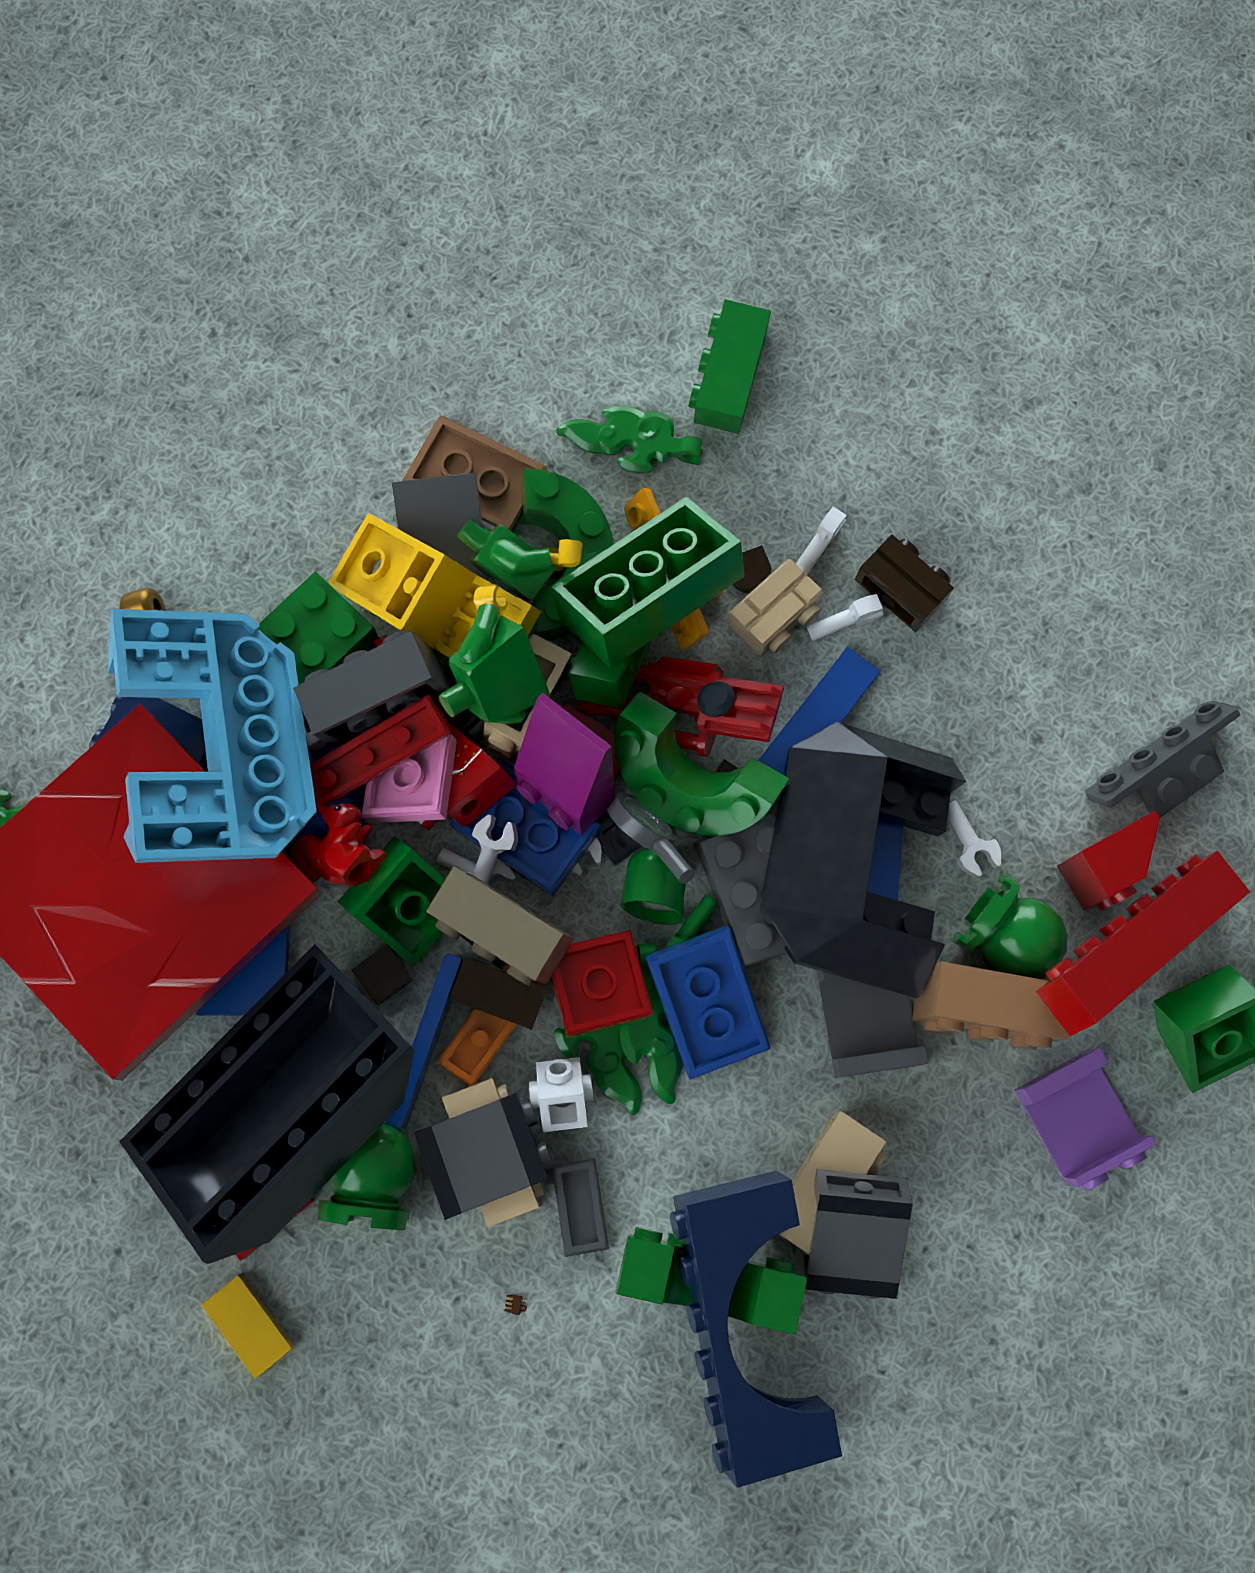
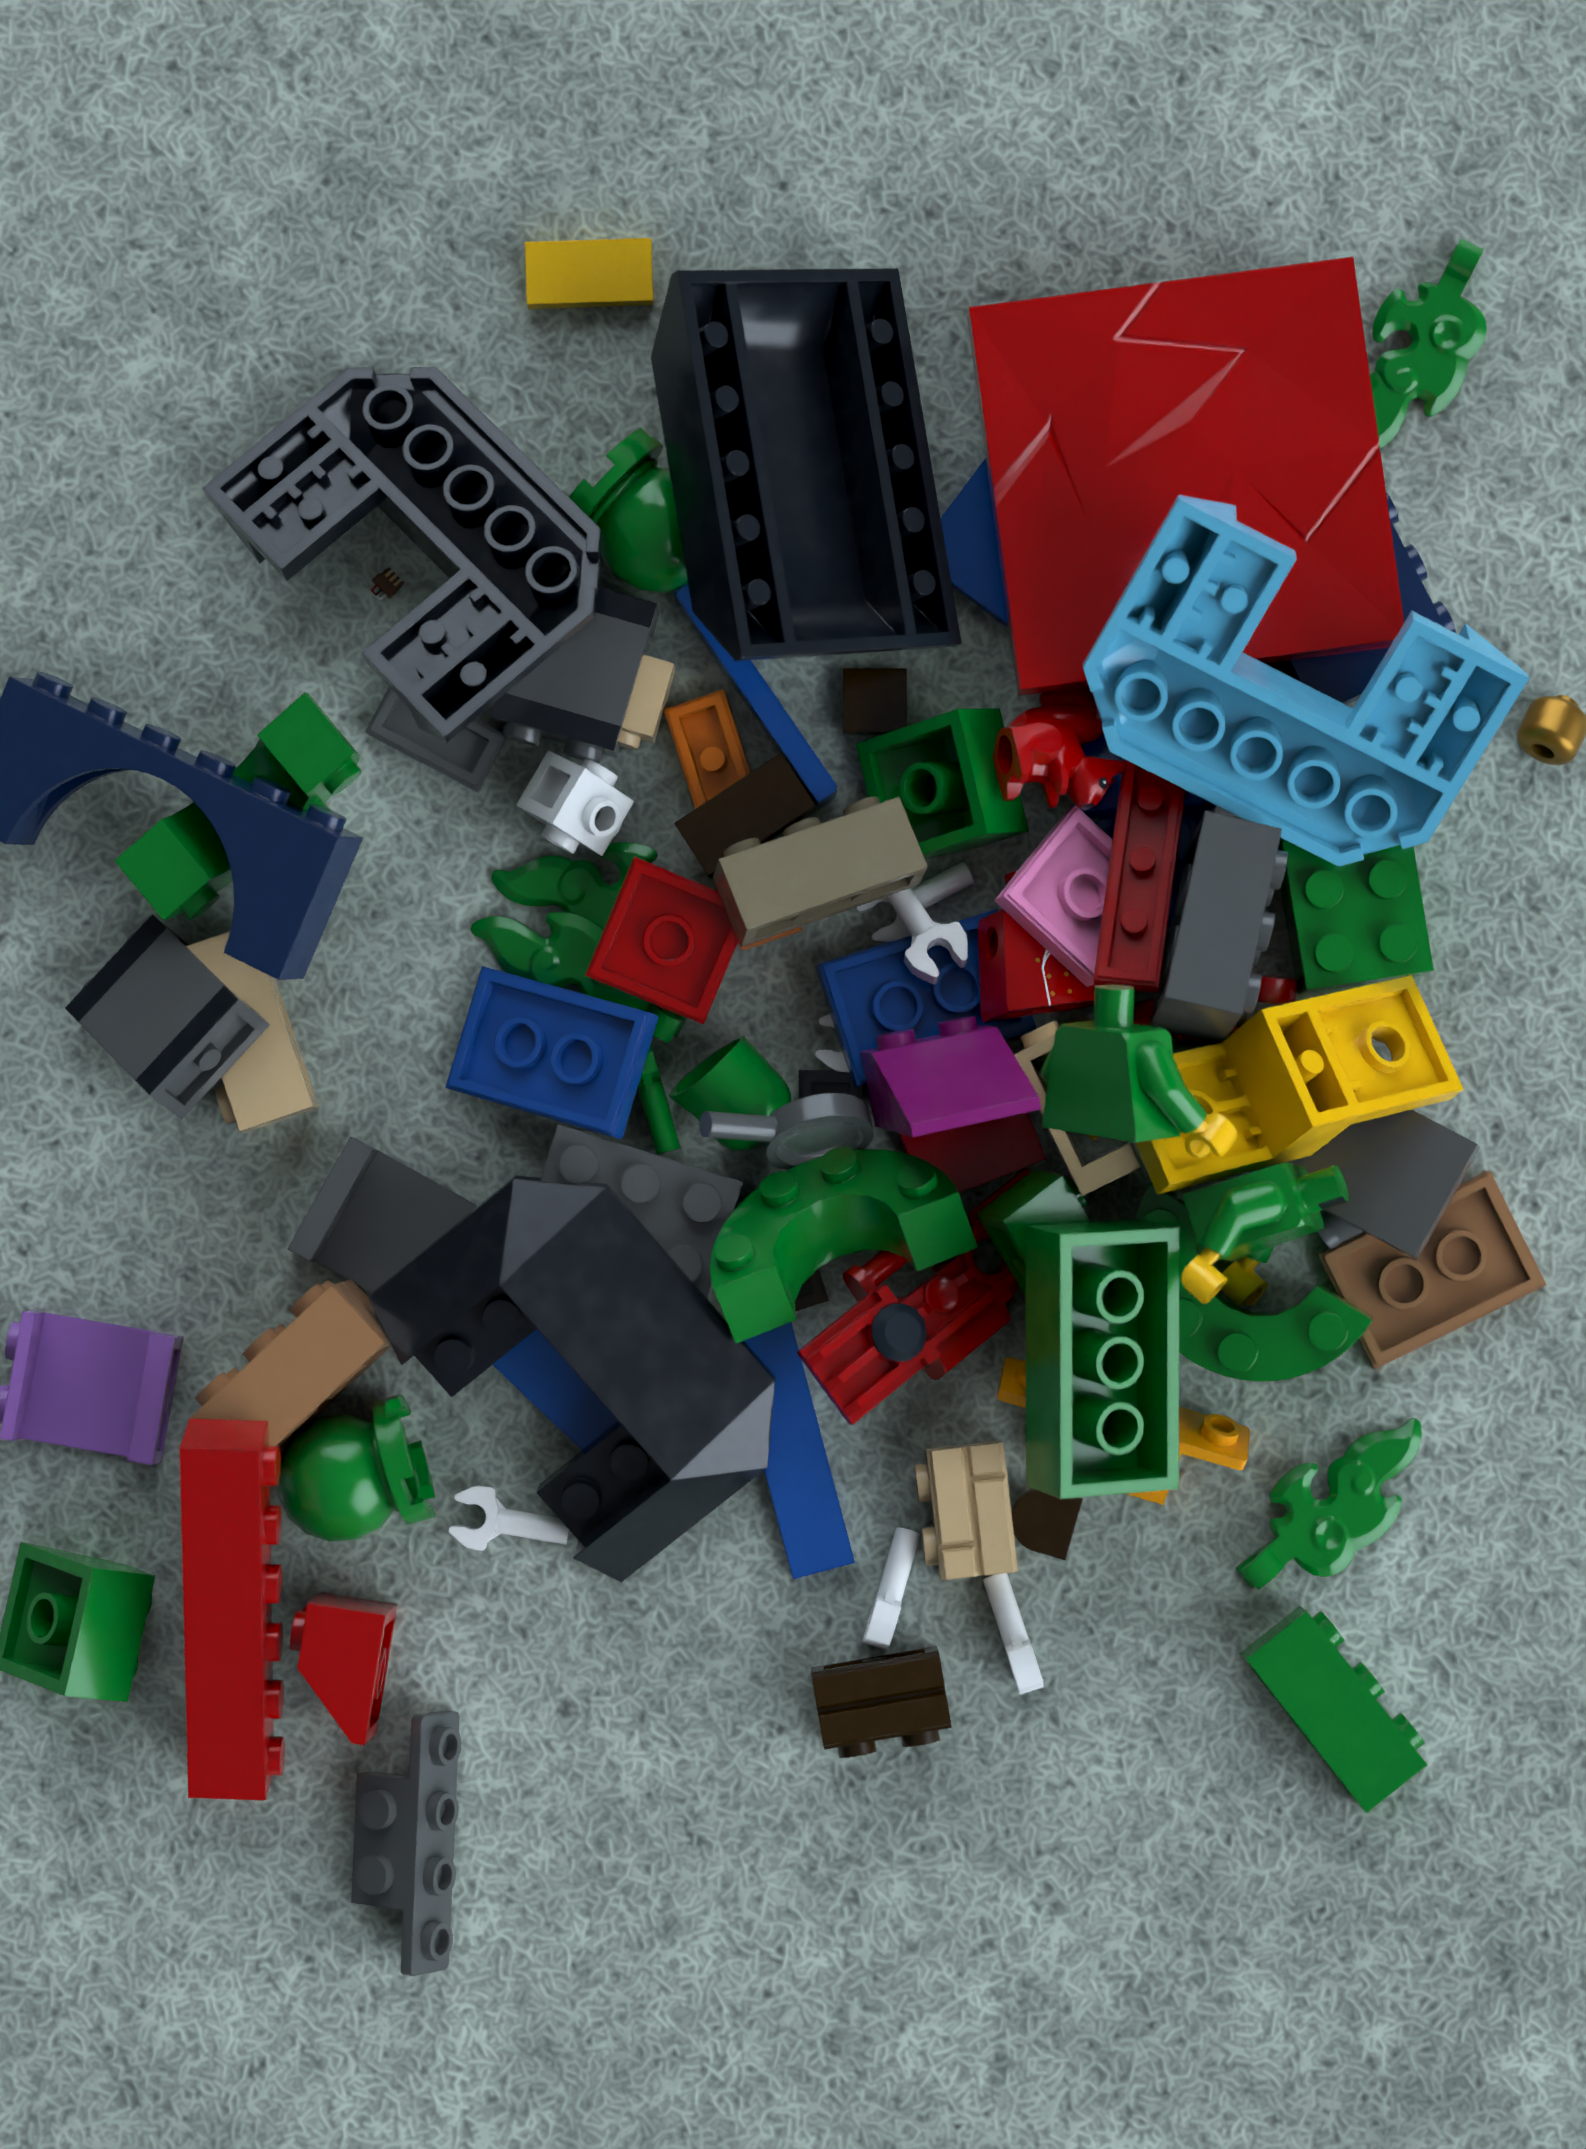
camera: 130 degrees right, 10 degrees up
(431, 1298) = (463, 493): none -> black slope

